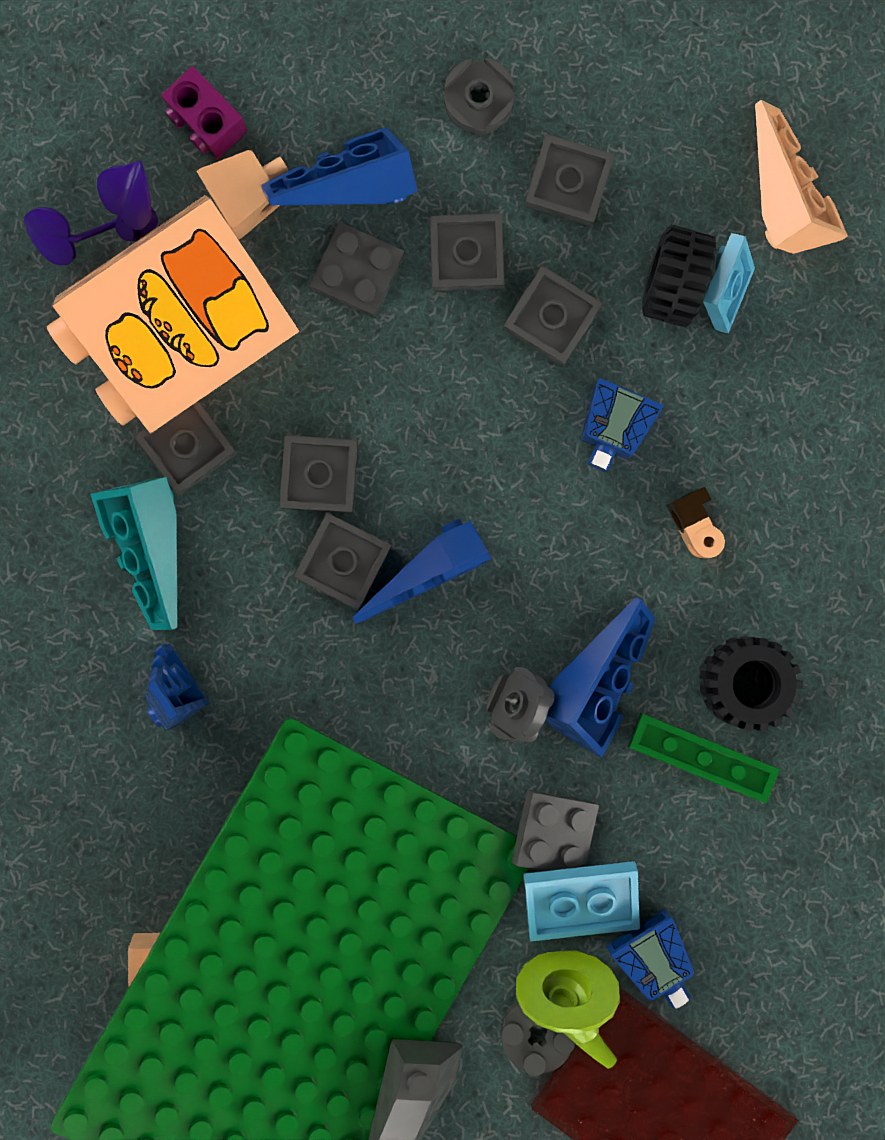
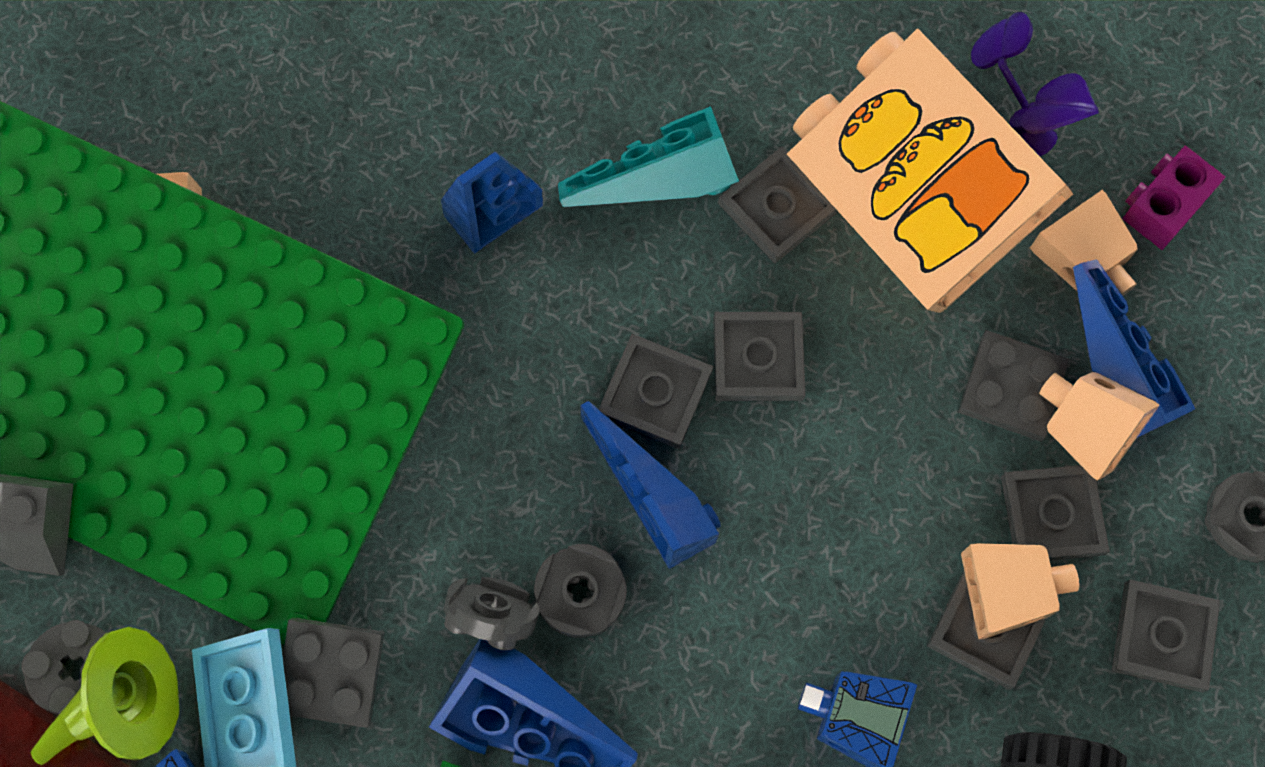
camera: 80 degrees right, 15 degrees down
(397, 206) = (1096, 419): none -> light nougat torso
(511, 652) = (557, 604): none -> dark grey plate
(530, 292) = (1013, 585): none -> light nougat torso

